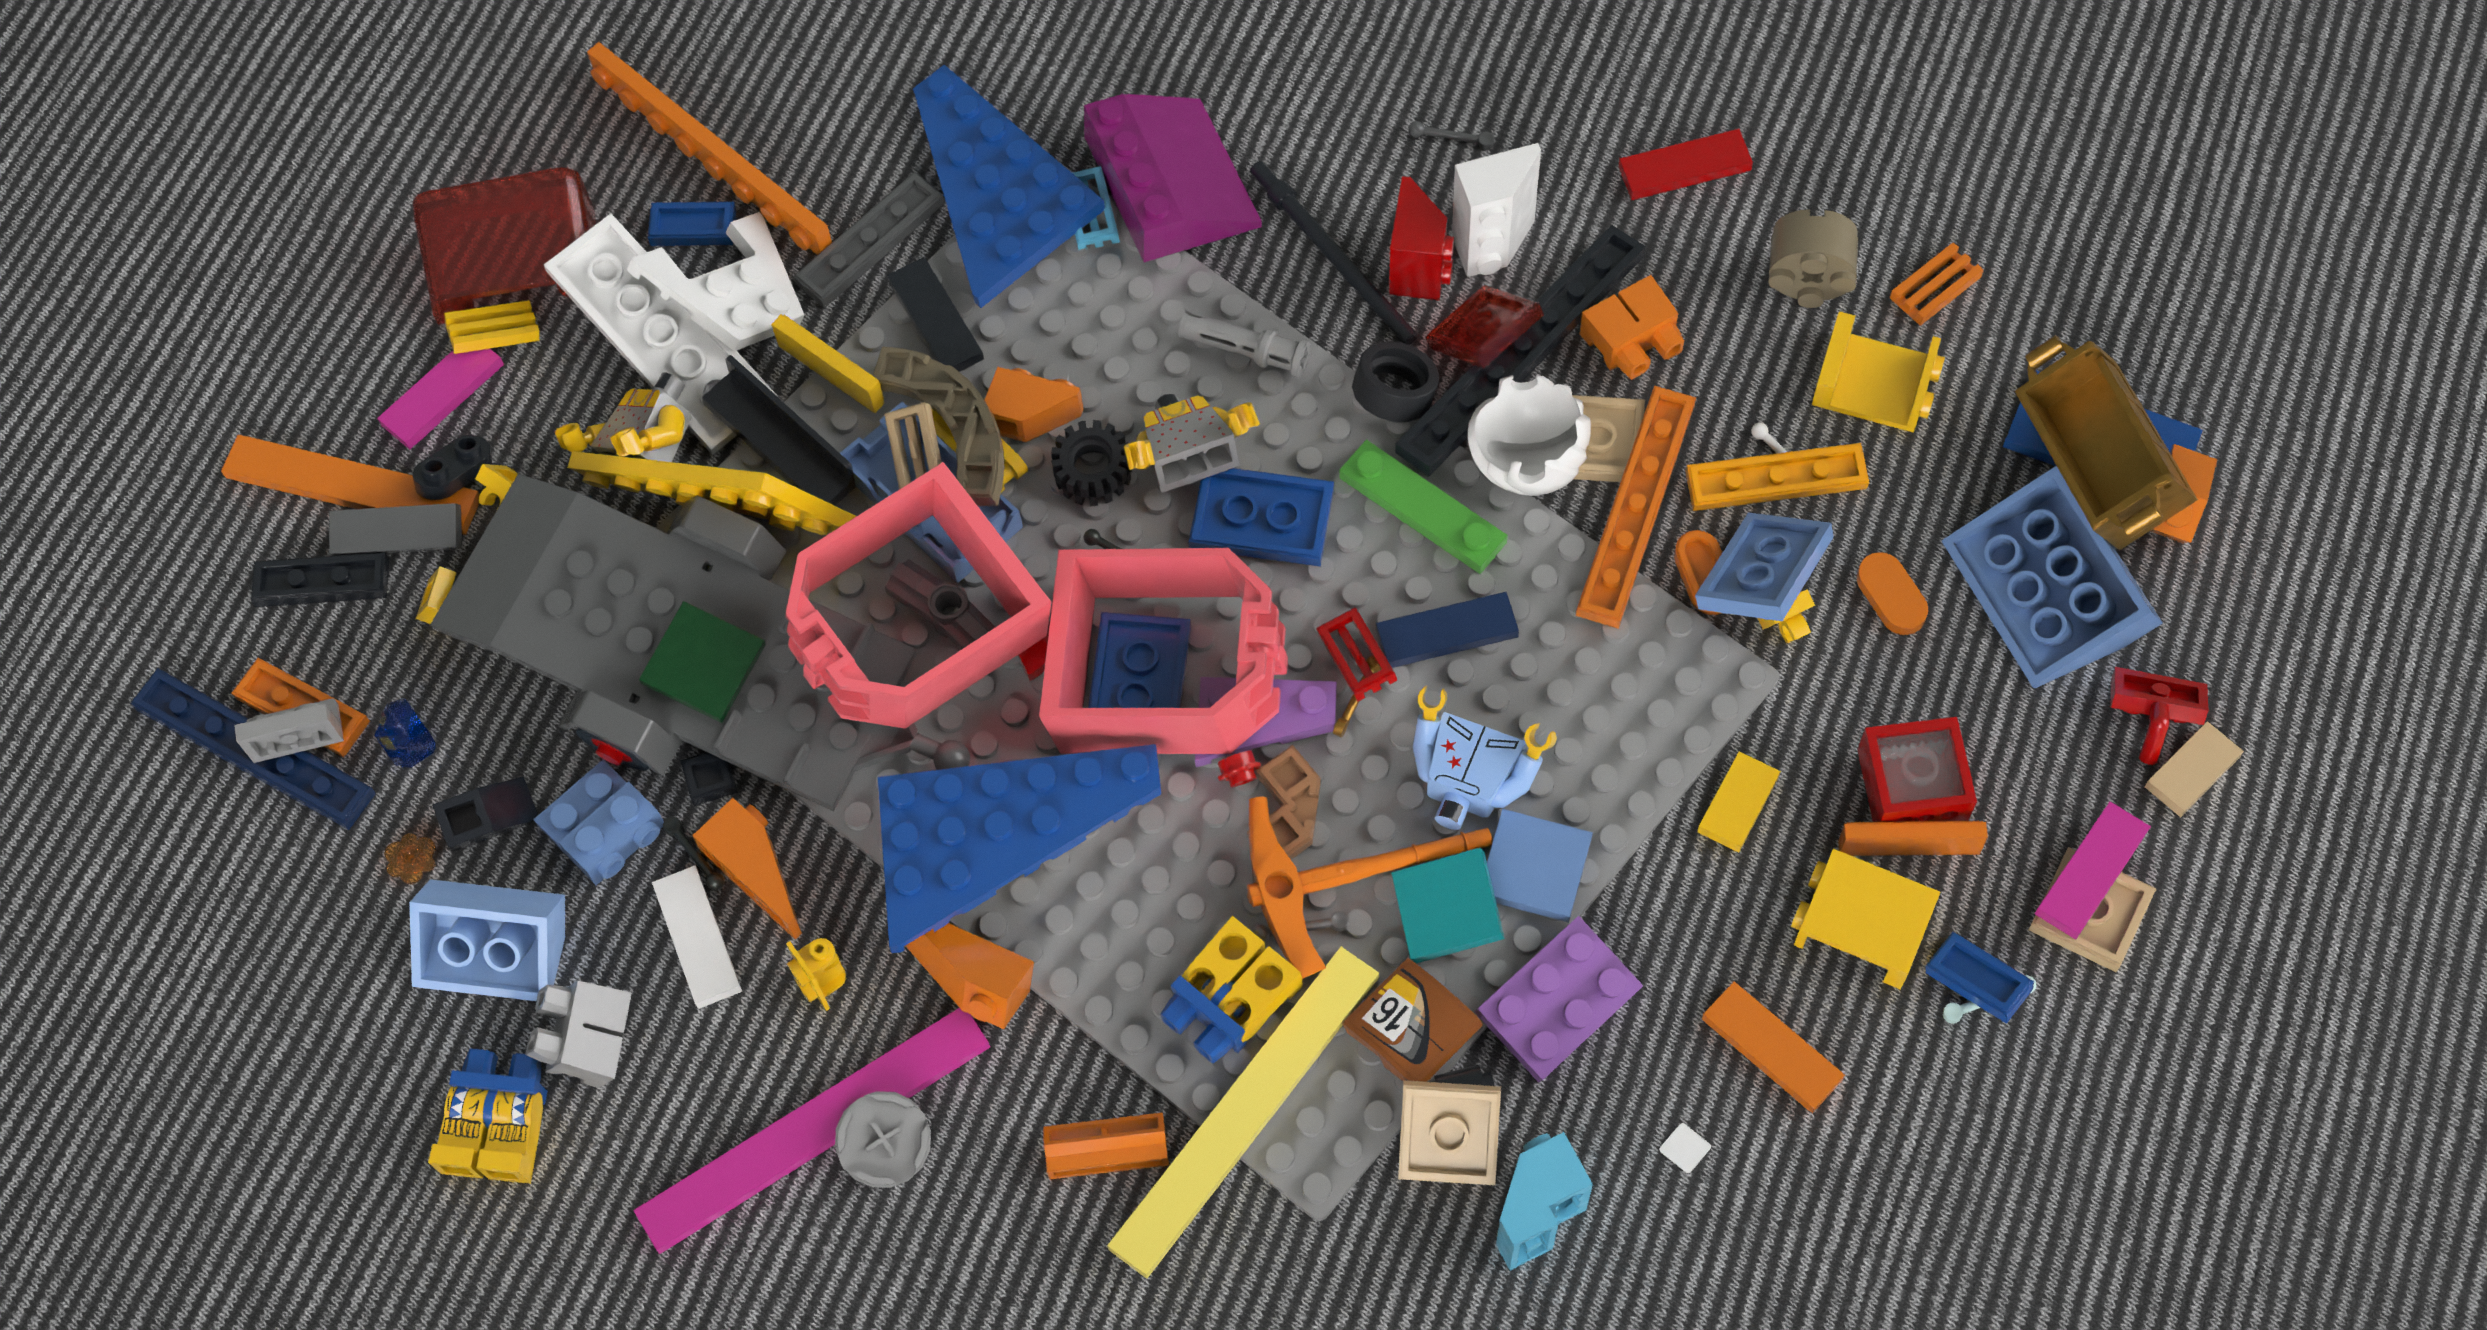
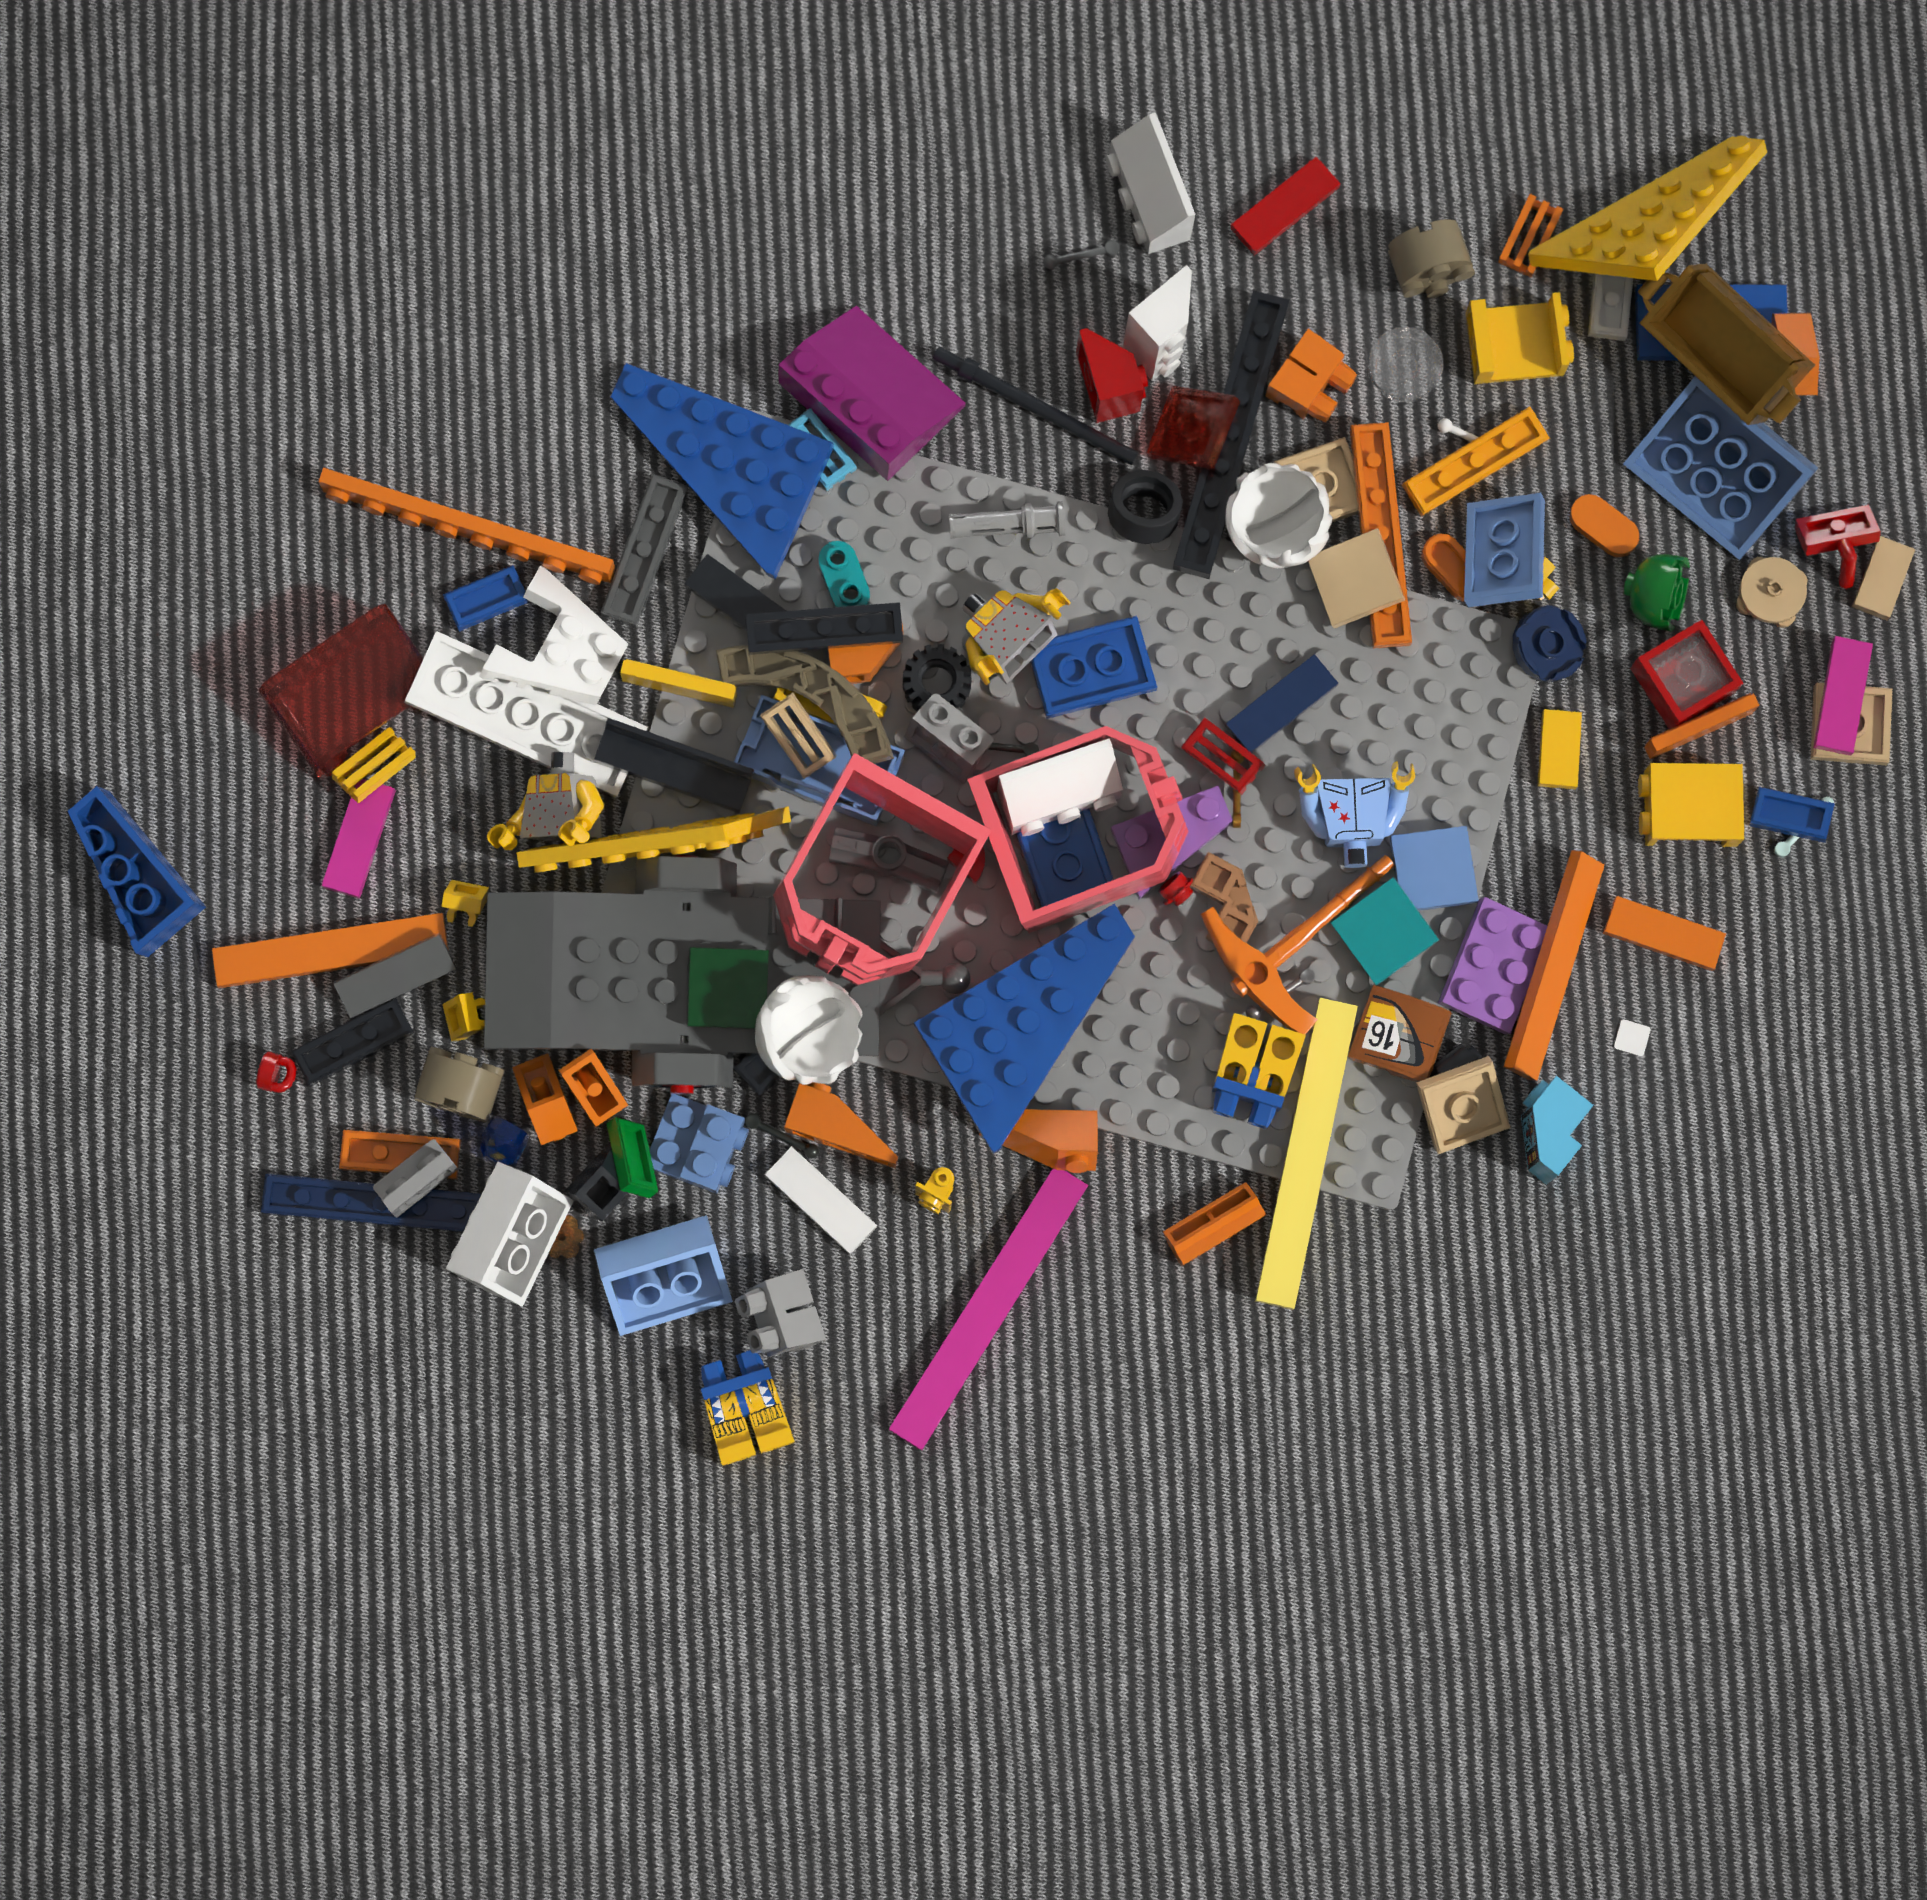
camera: 35 degrees left, 15 degrees up
(206, 336) = (142, 884): none -> blue wedge
(223, 572) = (270, 1070): none -> red tile
(348, 822) = (509, 1234): none -> white brick
(388, 653) = (458, 1084): none -> dark tan brick
(451, 467) = (413, 899): black plate -> none
(469, 712) = (544, 1099): none -> orange slope
(517, 707) = (593, 1087): none -> orange slope
(520, 802) = (632, 1157): none -> green tile
(754, 729) = (808, 1030): none -> white piece
(883, 1139) = (1047, 1293): light grey tile -> none
(996, 357) = (824, 628): none -> black panel
(1050, 329) = (843, 576): none -> teal plate
(1071, 511) = (948, 737): none -> light grey bracket
(1158, 603) = (1060, 788): none -> white slope
(1423, 506) = (1215, 606): bright green plate -> none
(1550, 88) = (1151, 185): none -> white slope
(1587, 533) = (1356, 578): none -> tan tile
(1626, 1026) = (1554, 965): none -> orange tile
(1743, 356) = (1405, 364): none -> clear tile
(1774, 685) = (1549, 643): none -> dark blue tile
(1924, 676) = (1658, 590): none -> green cylinder
(2005, 362) = (1610, 307): none -> white tile
(2057, 733) = (1772, 591): none -> tan piece
(2080, 304) = (1658, 221): none -> yellow wing

